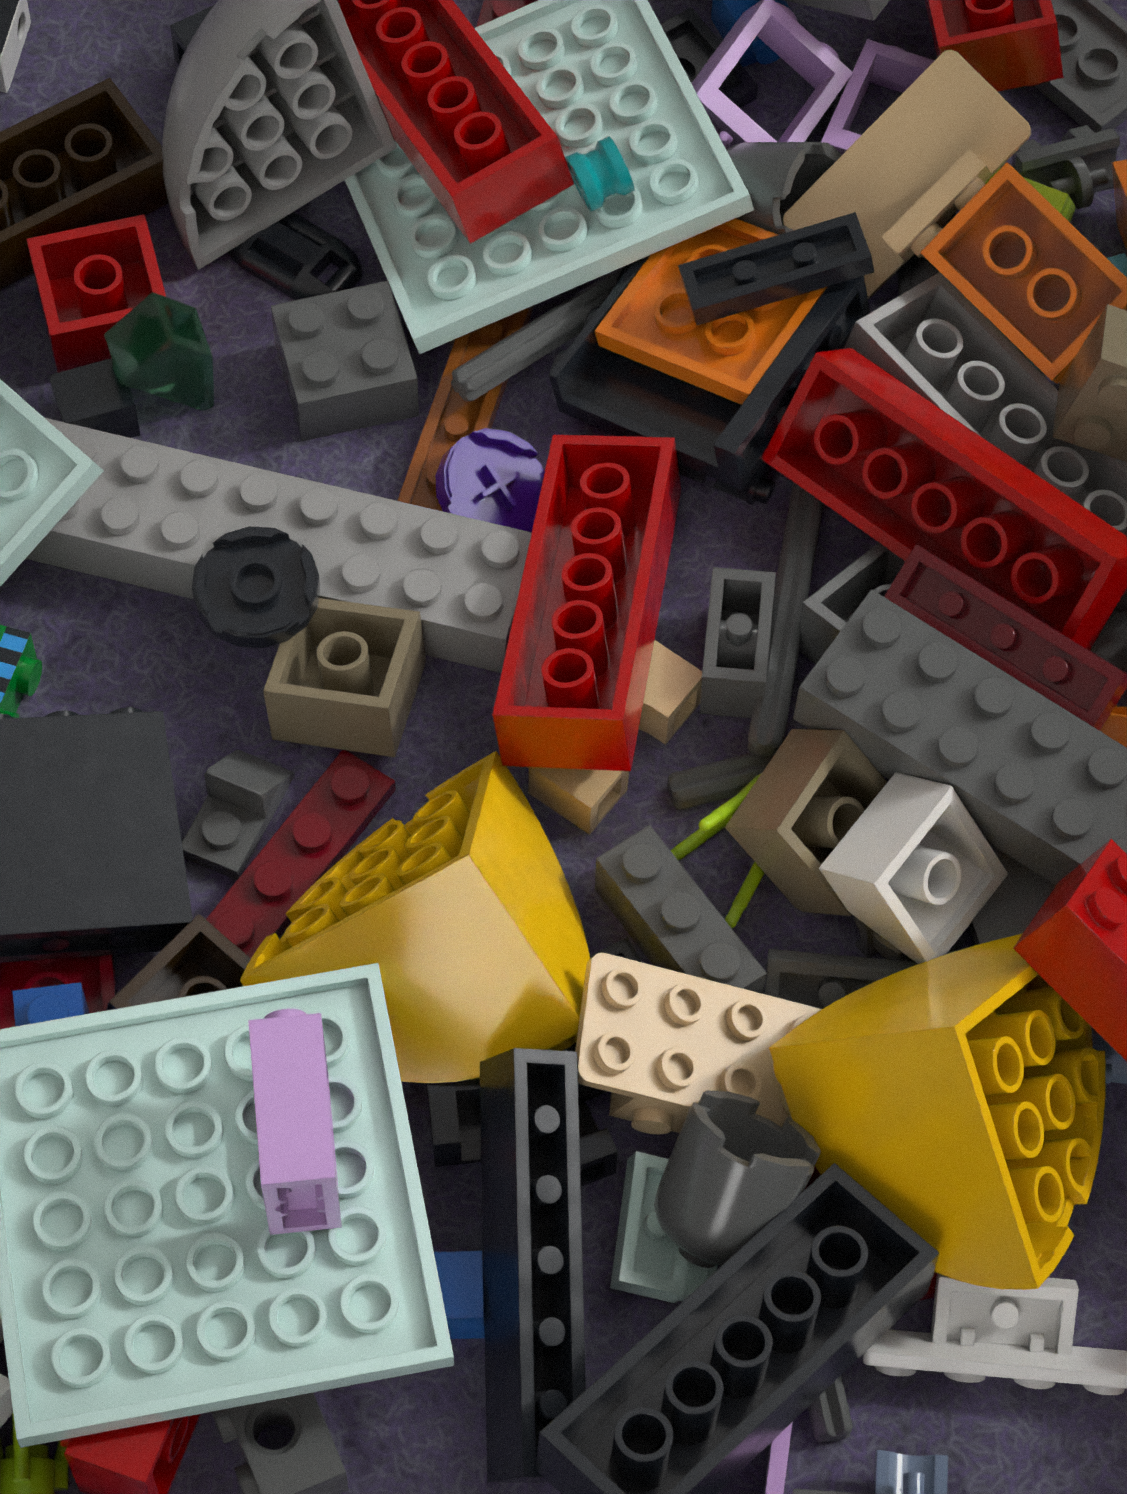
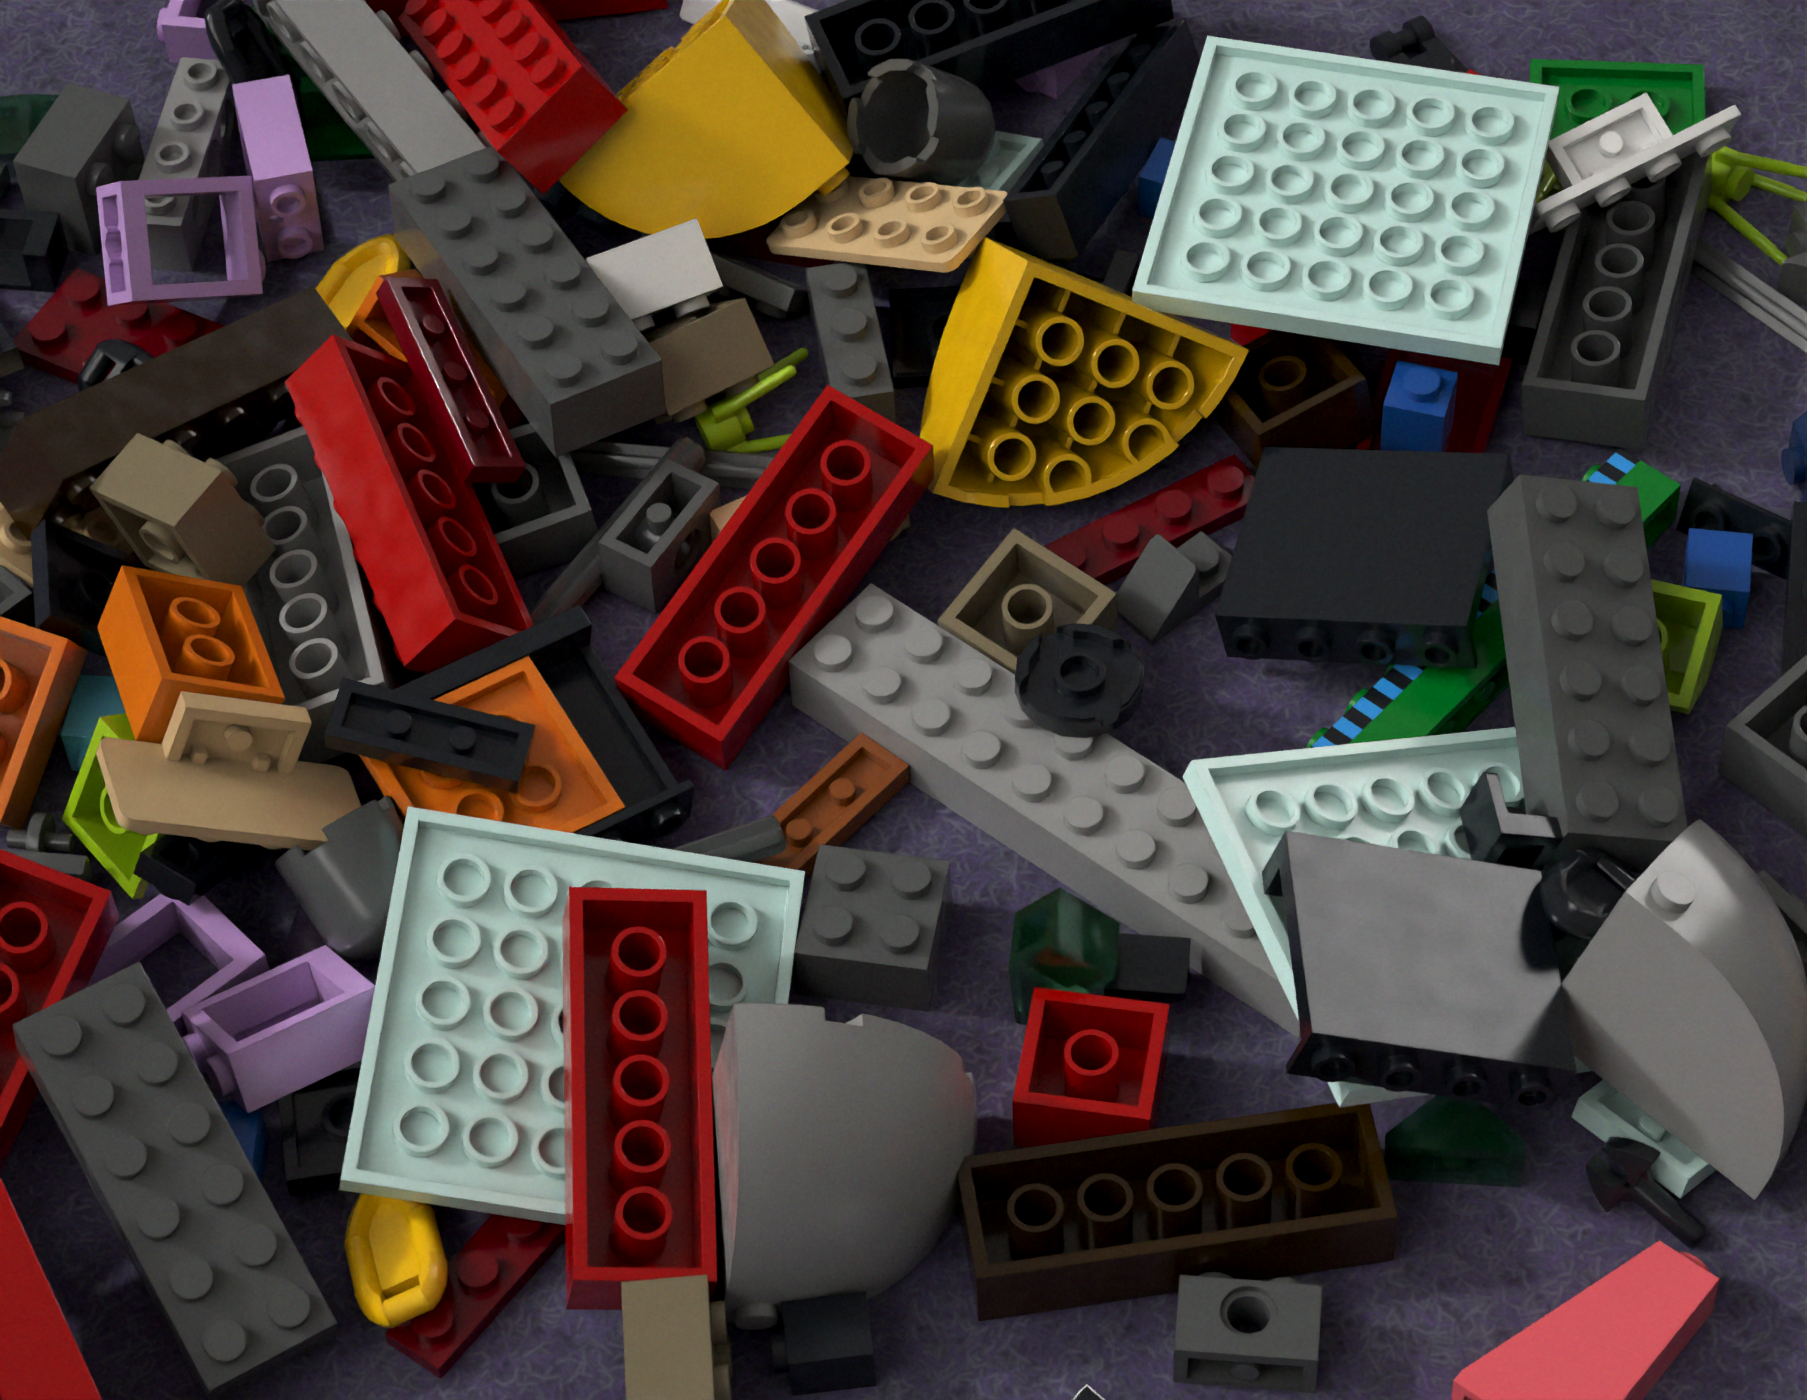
camera: 150 degrees left, 10 degrees down
(294, 1122) = (1261, 146): lavender window -> none
(491, 479) = (796, 759): tile -> none
(600, 173) = (537, 890): teal wheel -> none

